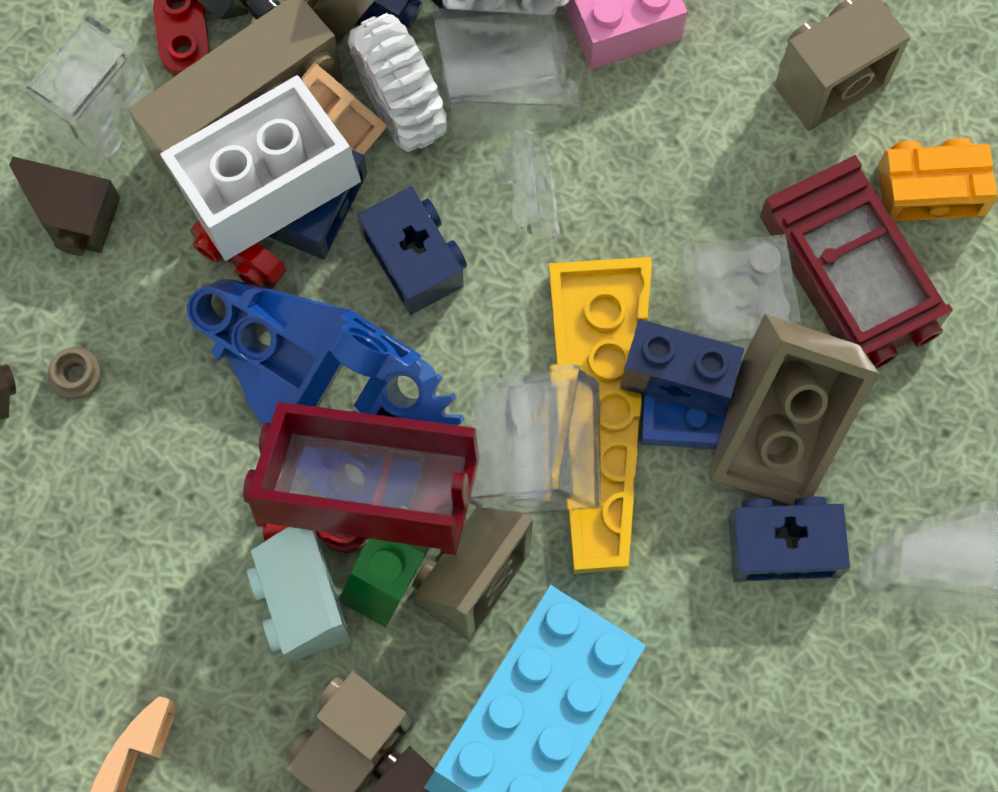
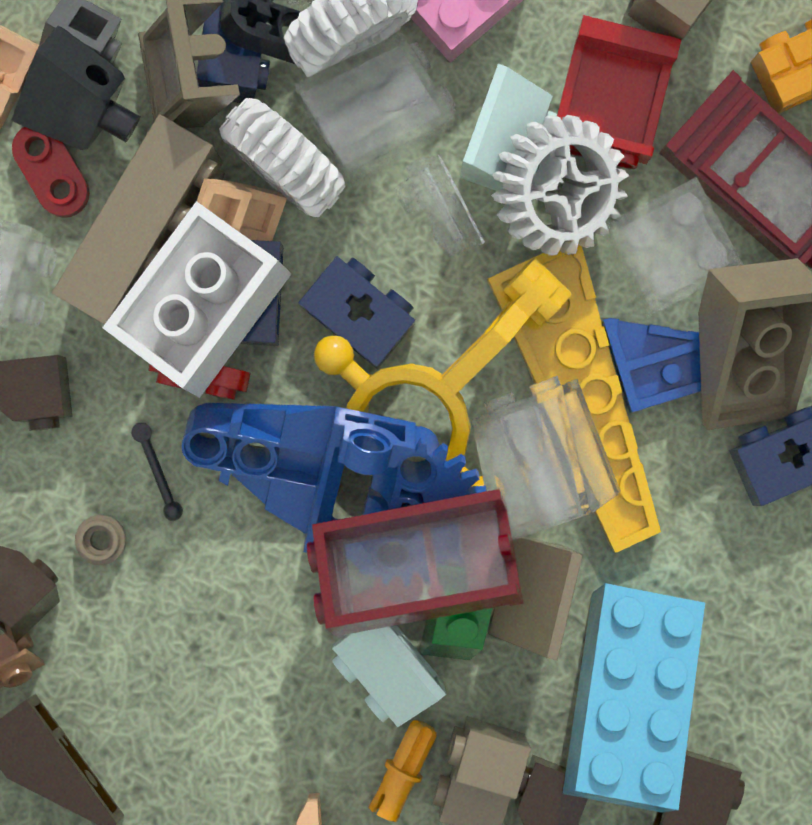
camera: 20 degrees left, 15 degrees up
(159, 292) = (142, 433): none -> black hinge
(271, 712) = (403, 771): none -> light orange axle
(585, 285) = (533, 294): none -> yellow piece
(616, 136) = (505, 112): none -> light aqua slope
(642, 209) = (581, 202): none -> white gear
(681, 368) = (648, 341): dark blue brick -> none
(736, 142) = (619, 84): none -> red panel

